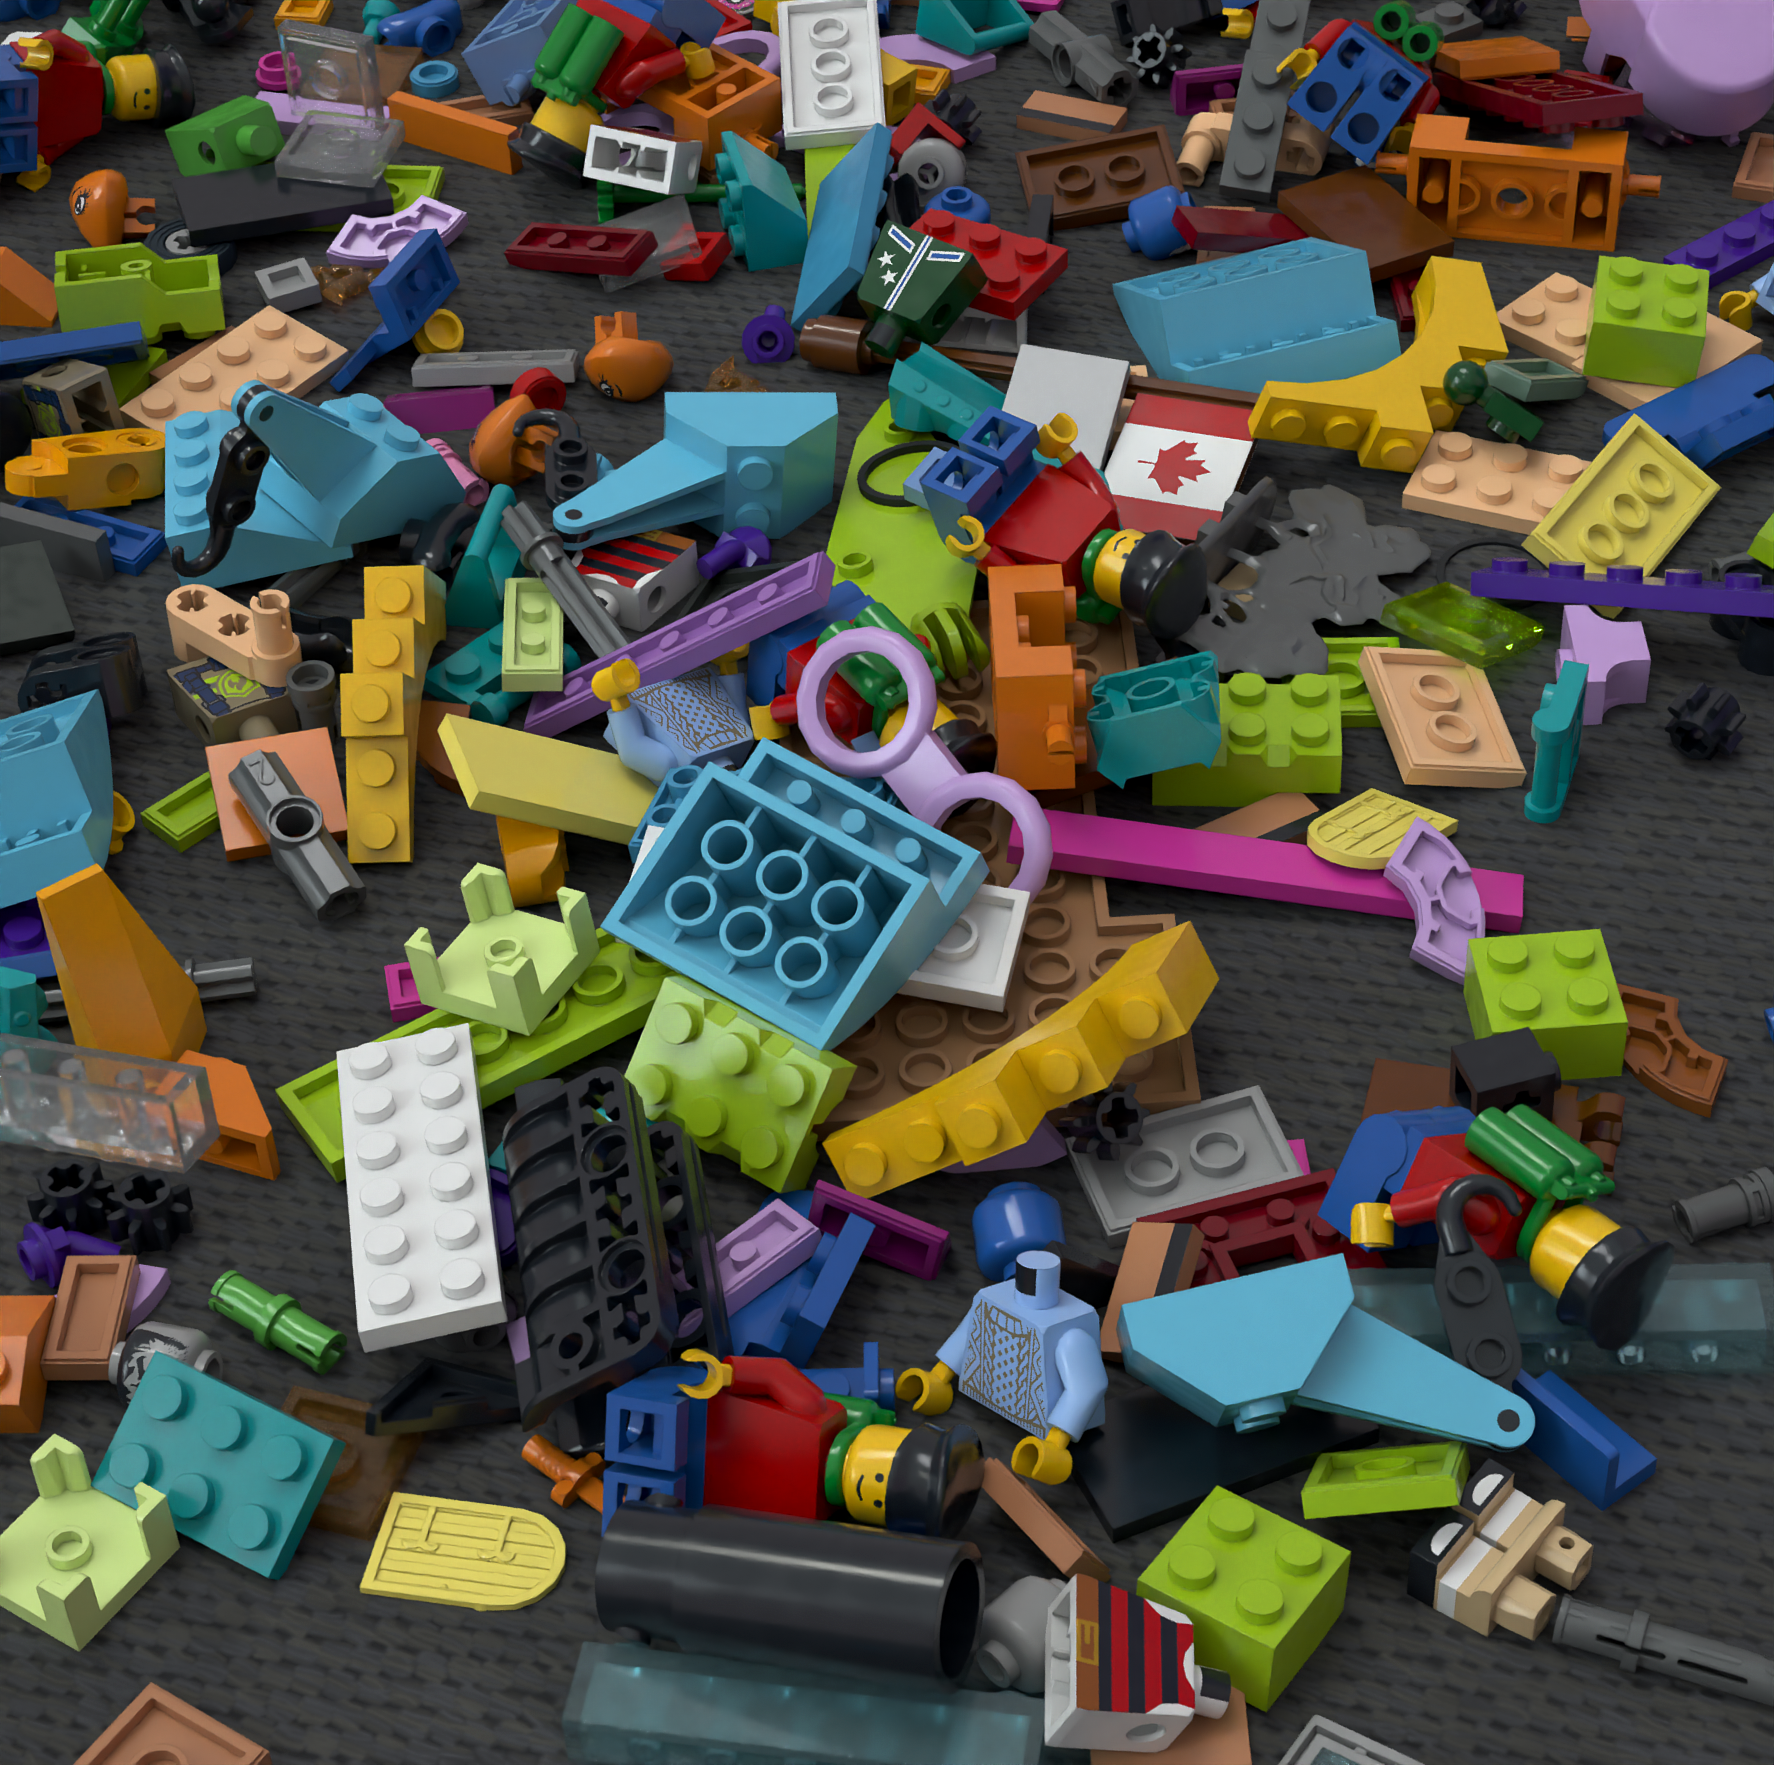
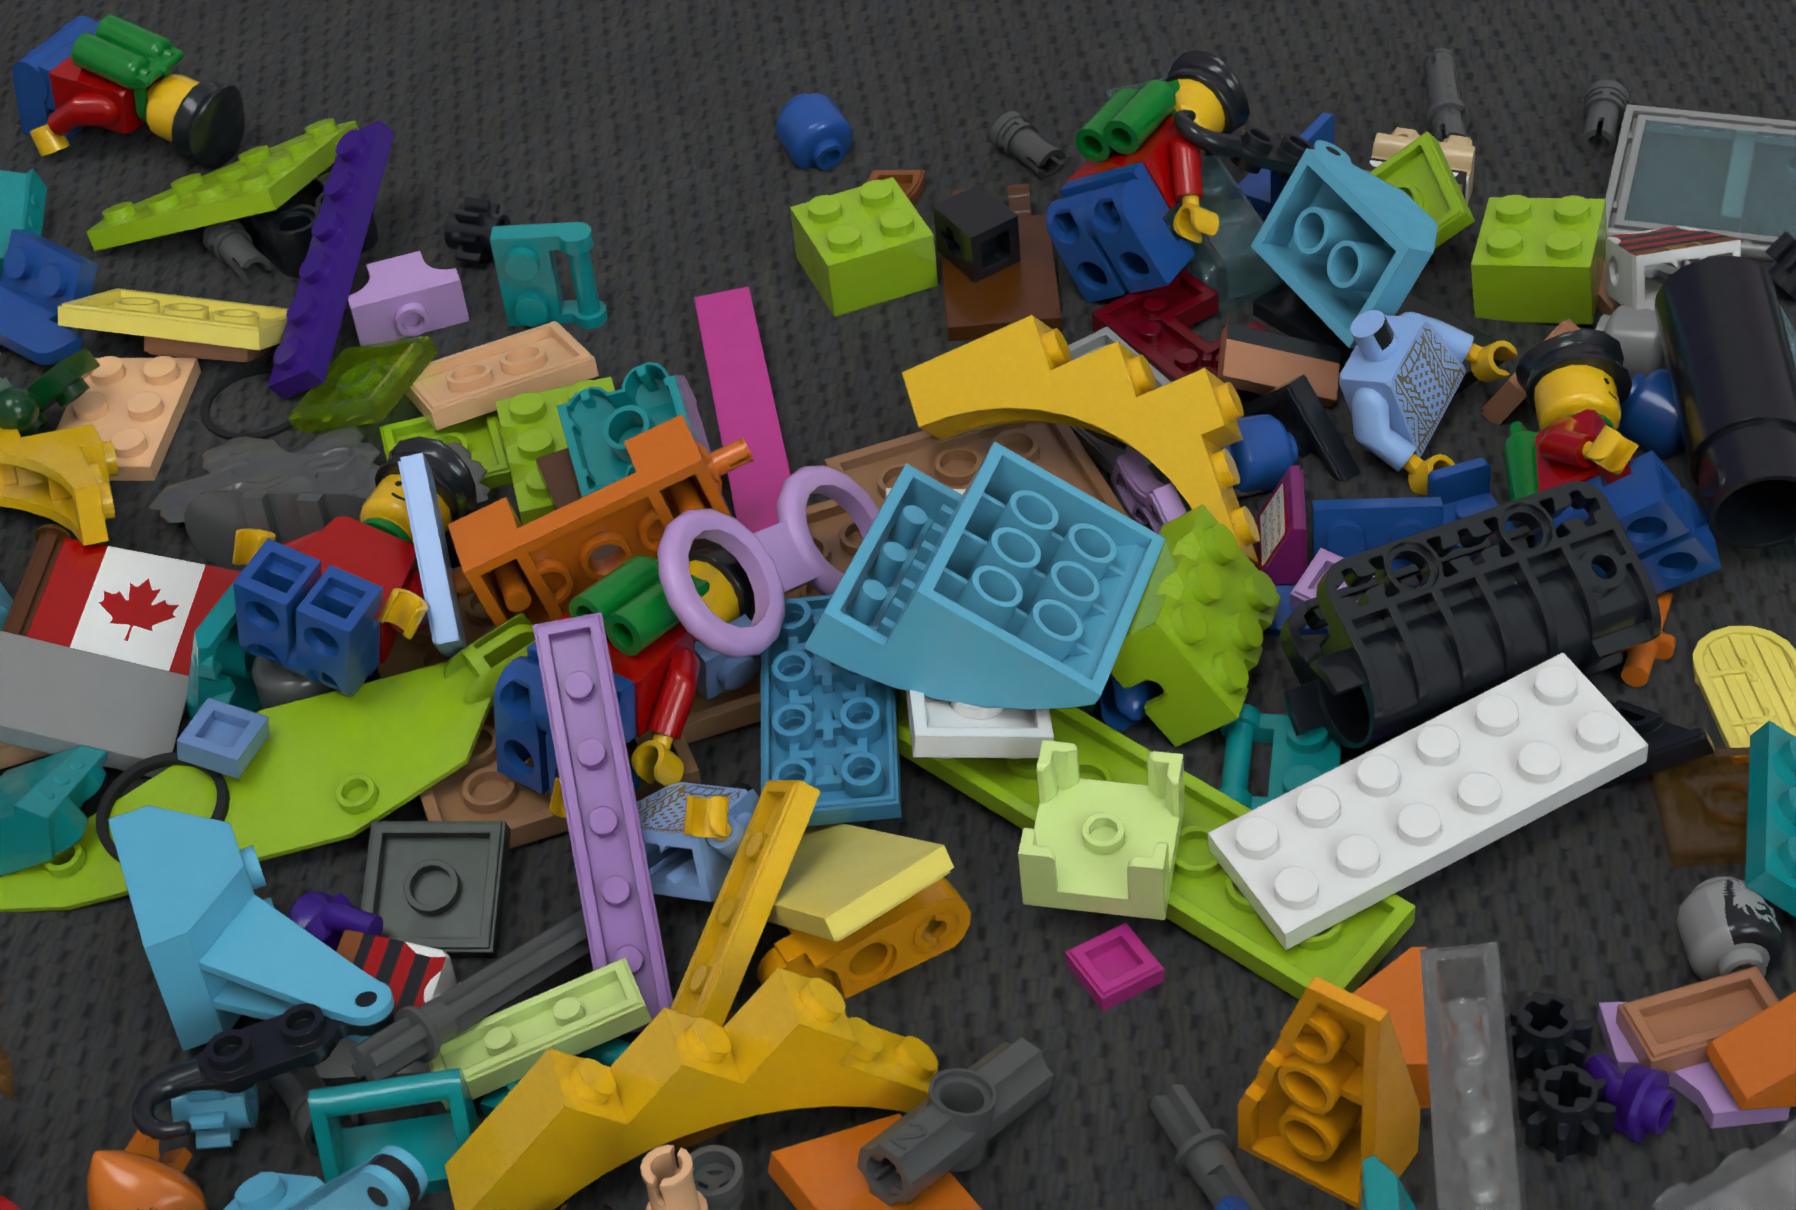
camera: 105 degrees left, 0 degrees up
(277, 1321) = (1610, 893): bright green pin -> none
(570, 727) = (745, 900): none -> yellow tile
(1078, 541) = (432, 554): none -> light blue tile
(1369, 829) = (705, 363): light yellow window -> none
(1442, 898) = (755, 316): lavender tile -> none

